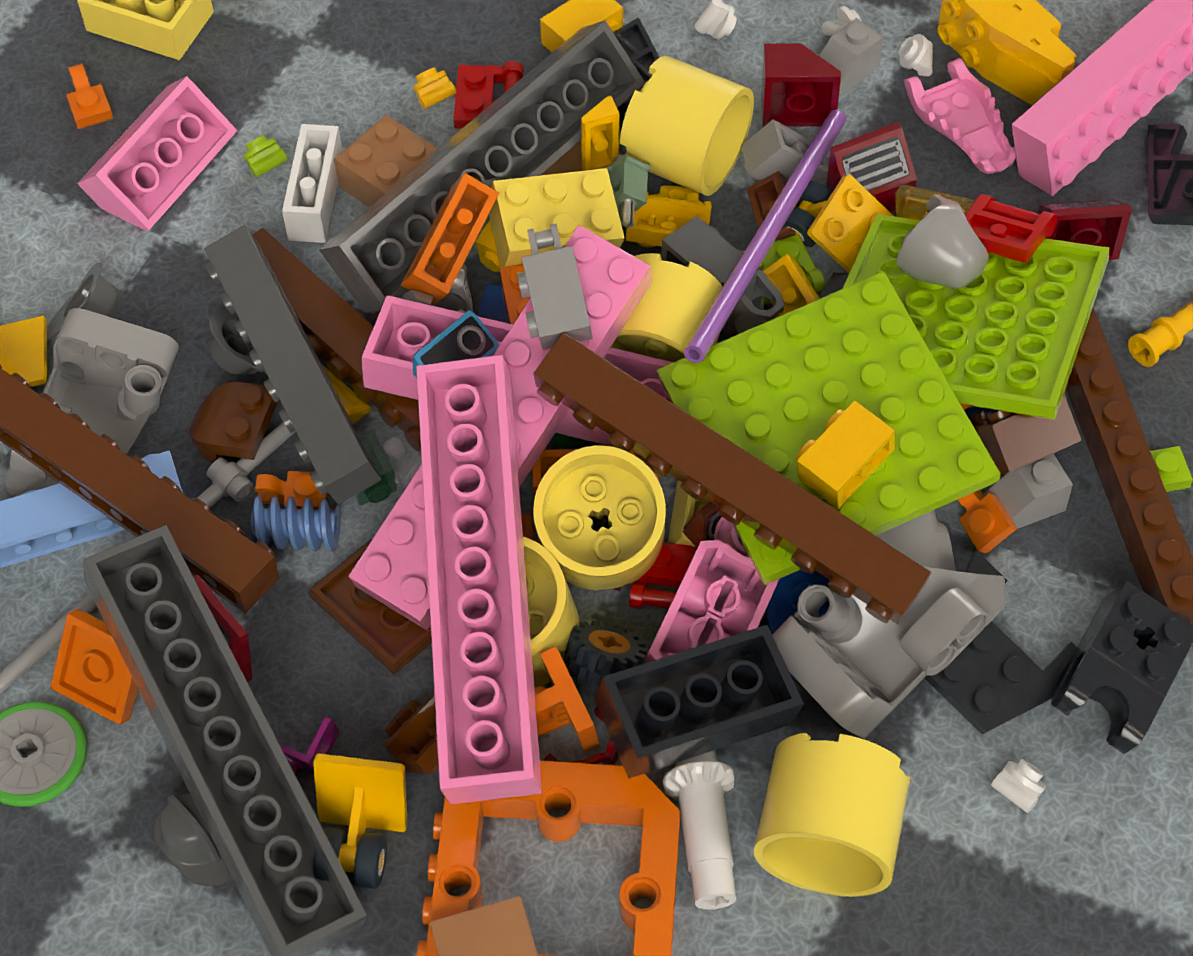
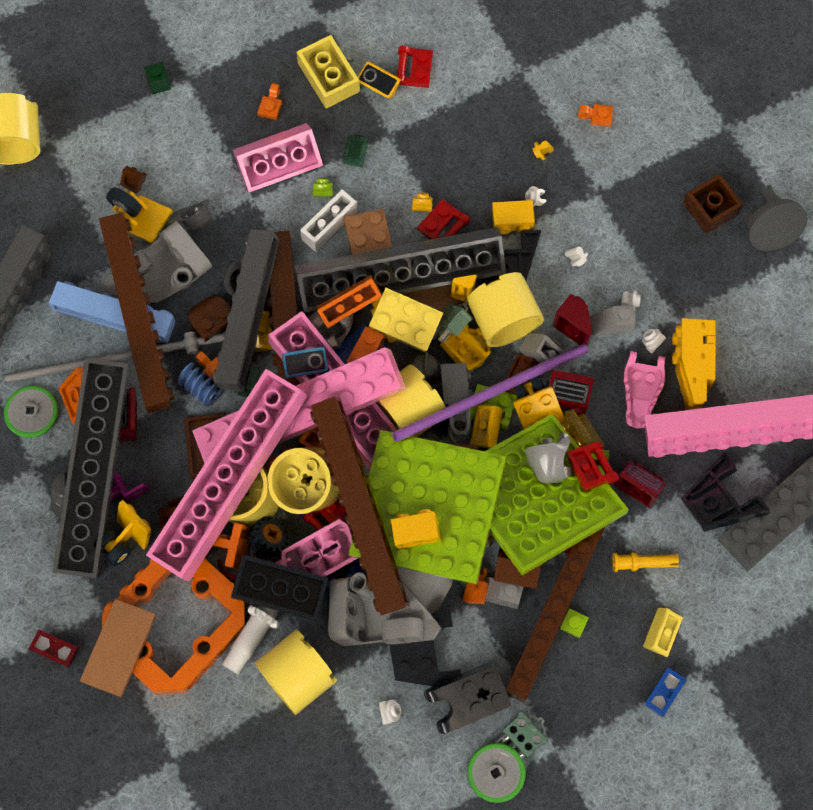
camera: 35 degrees right, 15 degrees up
(274, 80) = (355, 150): none -> clear green brick
(554, 289) = (348, 372): light grey brick -> none

